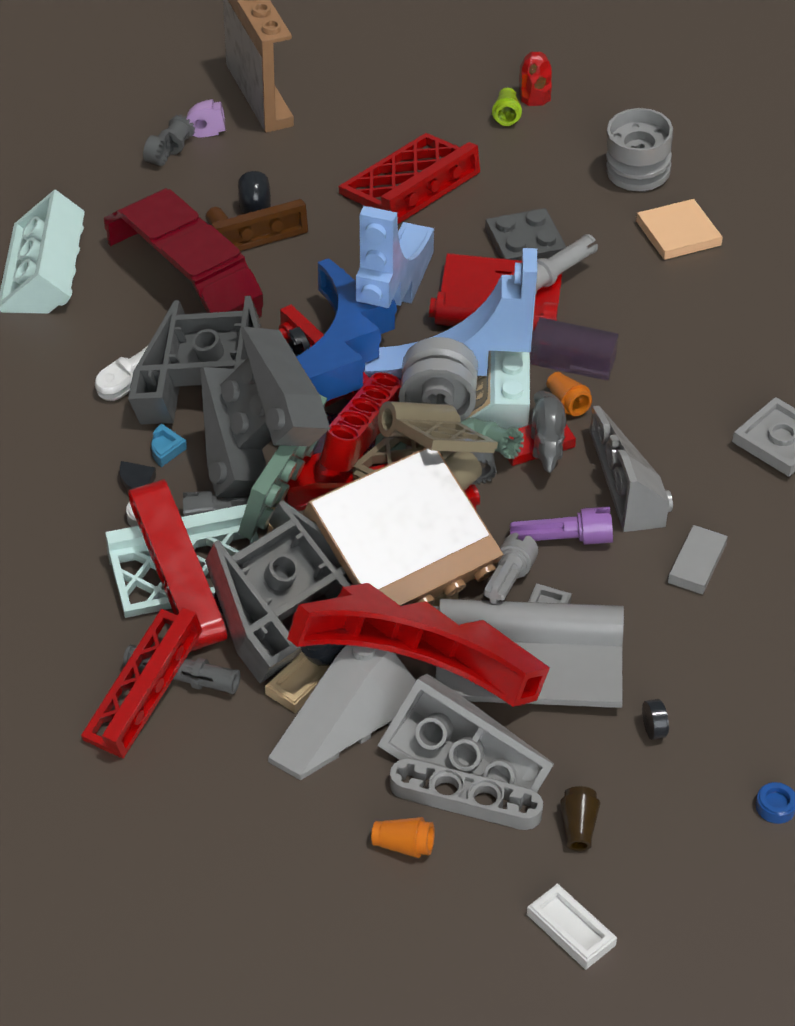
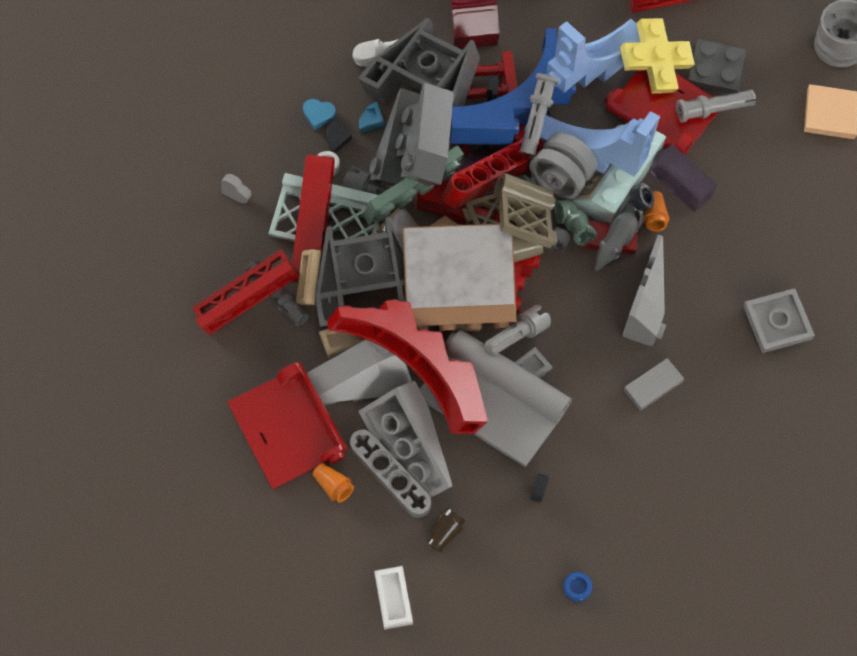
camera: 30 degrees right, 20 degrees up
(47, 583) = (233, 188): none -> light grey tile
(95, 466) = (318, 113): none -> dark azure tile
(218, 621) = (308, 277): none -> tan tile
(303, 801) = (293, 424): none -> red door
(376, 318) = (540, 102): none -> light grey pin
(455, 243) = (657, 55): none -> light yellow plate
(547, 378) = (642, 196): none -> black tile
(589, 525) = (596, 322): medium lavender piece -> none

